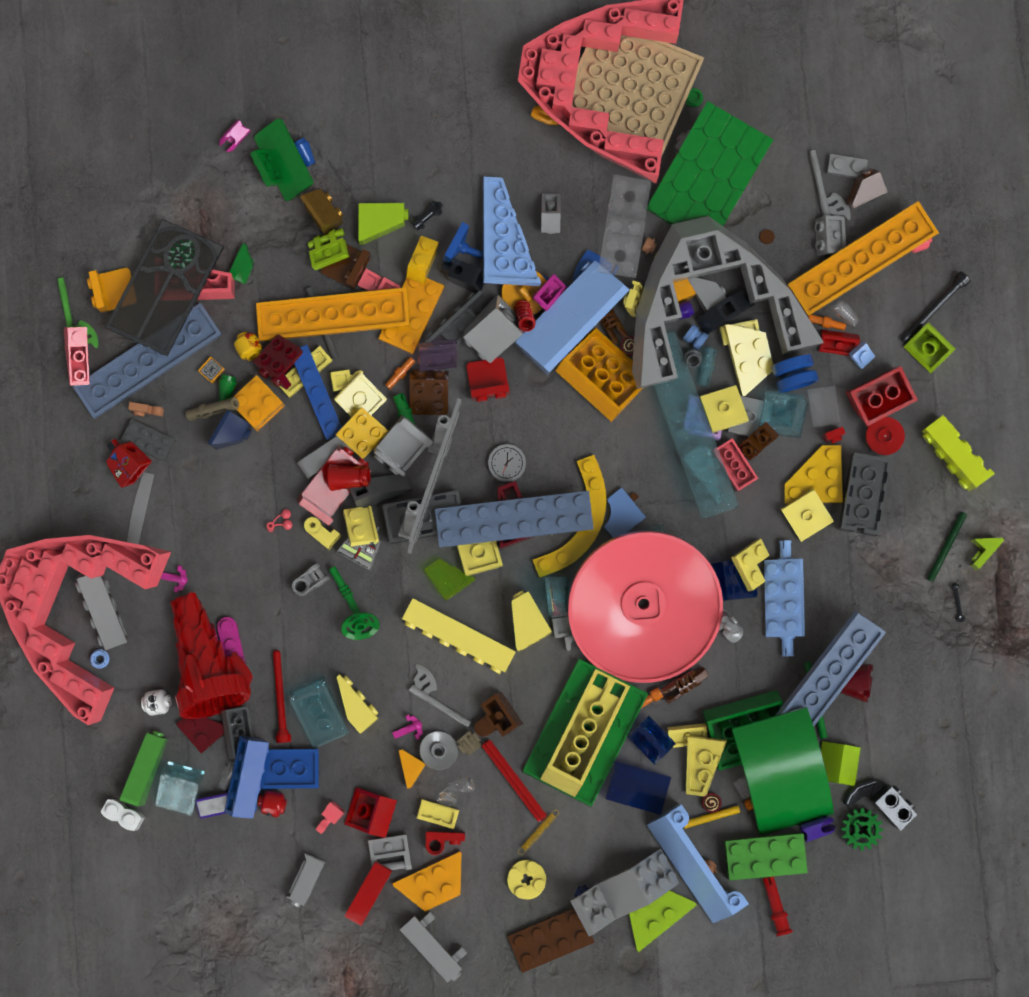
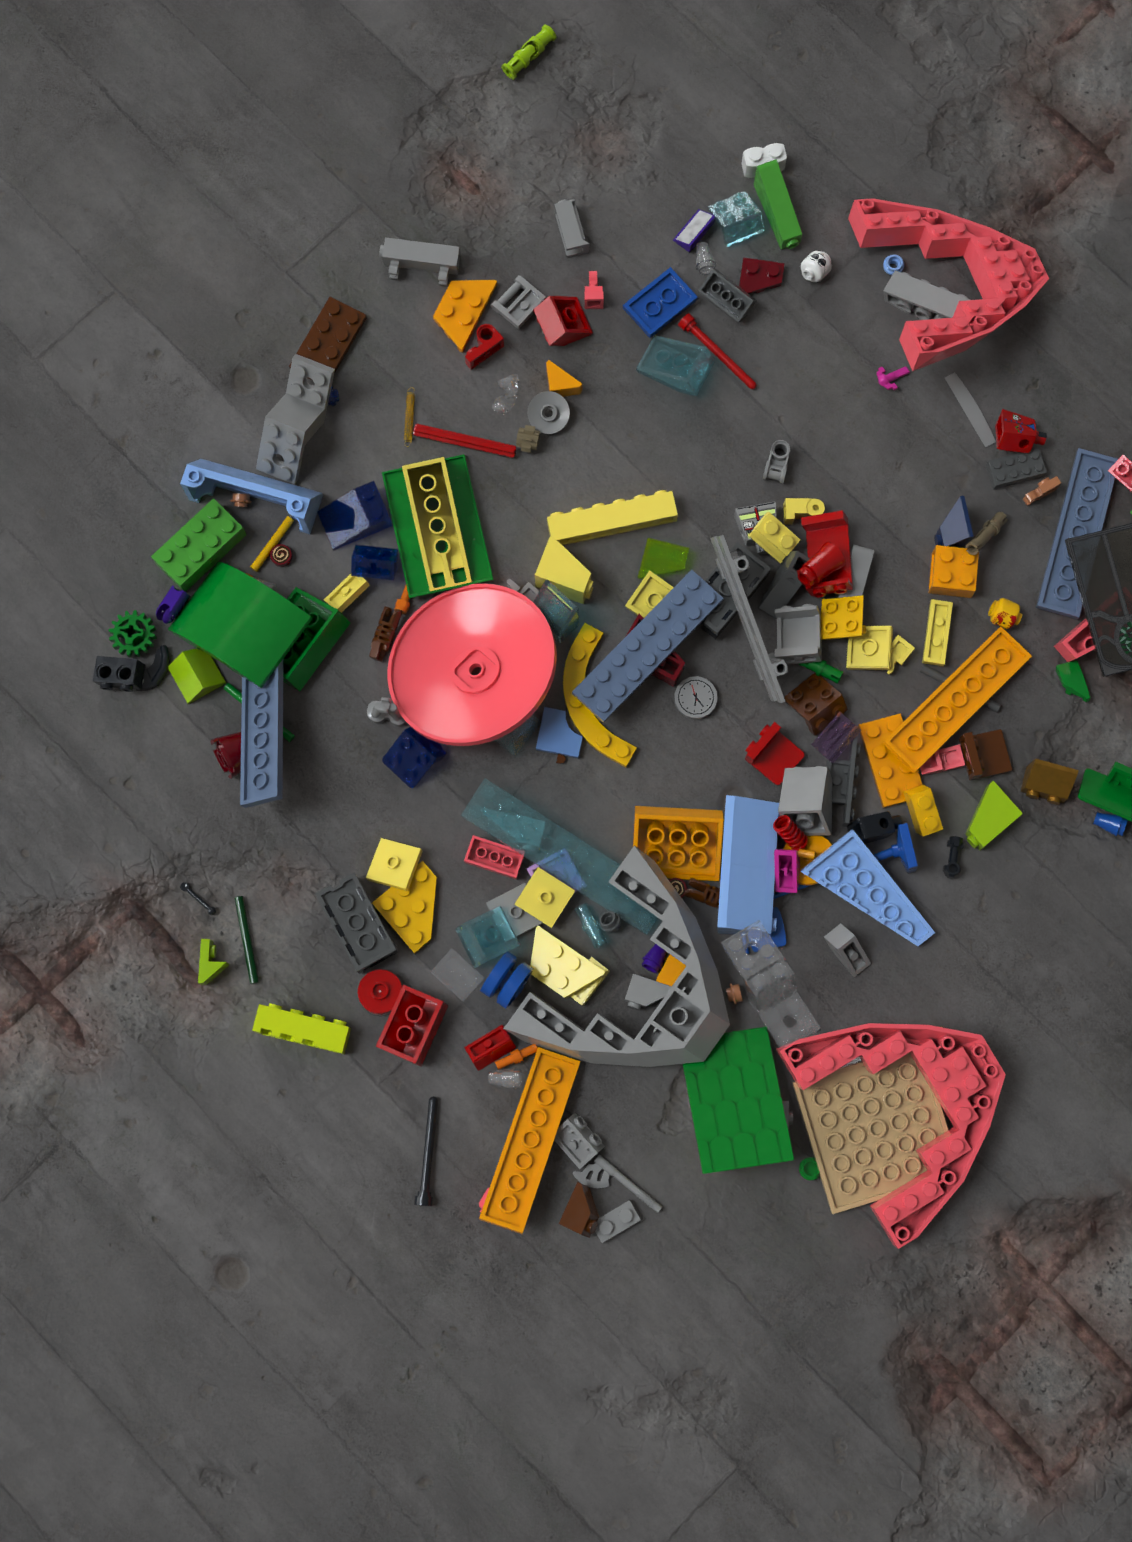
camera: 140 degrees right, 5 degrees down
(207, 677) = (796, 314): red cone -> none
(211, 370) = (1017, 570): tile -> none
(226, 386) = (992, 566): green cone -> none
(230, 637) = (796, 362): dark pink plate -> none
(246, 777) = (689, 263): brick -> none
(272, 803) = (649, 264): red head -> none
(276, 360) = (970, 618): dark red bracket -> none
(287, 524) = (837, 495): coral piece -> none
(317, 394) = (913, 622): blue plate -> none
(329, 253) = (1008, 748): lime plate -> none
(356, 710) = (645, 391): light yellow slope -> none
(358, 617) = (706, 462): green dish -> none
(368, 893) = (509, 255): red slope -> none
(400, 373) = (855, 699): orange bar -> none
(416, 725) = (585, 419): dark pink piece -> none
(424, 695) = (610, 448): light grey piece -> none
(438, 814) = (505, 364): light yellow plate -> none
(498, 717) = (522, 478): reddish brown brick -> none
(521, 889) = (389, 383): light yellow plate -> none
(632, 299) = (708, 926): light yellow plate -> none
(658, 917) = (248, 428): lime wing -> none
(695, 337) = (623, 943): medium blue wheel -> none
(702, 762) = (315, 577): light yellow wing -> none
(725, 311) = (616, 988): black slope -> none
(747, 561) = (414, 778): light yellow plate -> none
(758, 441) = (491, 893): reddish brown slope -> none
(767, 236) = (635, 1093): reddish brown piece -> none
(779, 915) = (149, 508): red pin -> none
(784, 598) = (356, 775): light blue plate -> none
(834, 435) = (426, 956): red plate -> none
(862, 355) = (460, 1051): light blue plate -> none
(929, 347) = (403, 1107): lime slope -> none

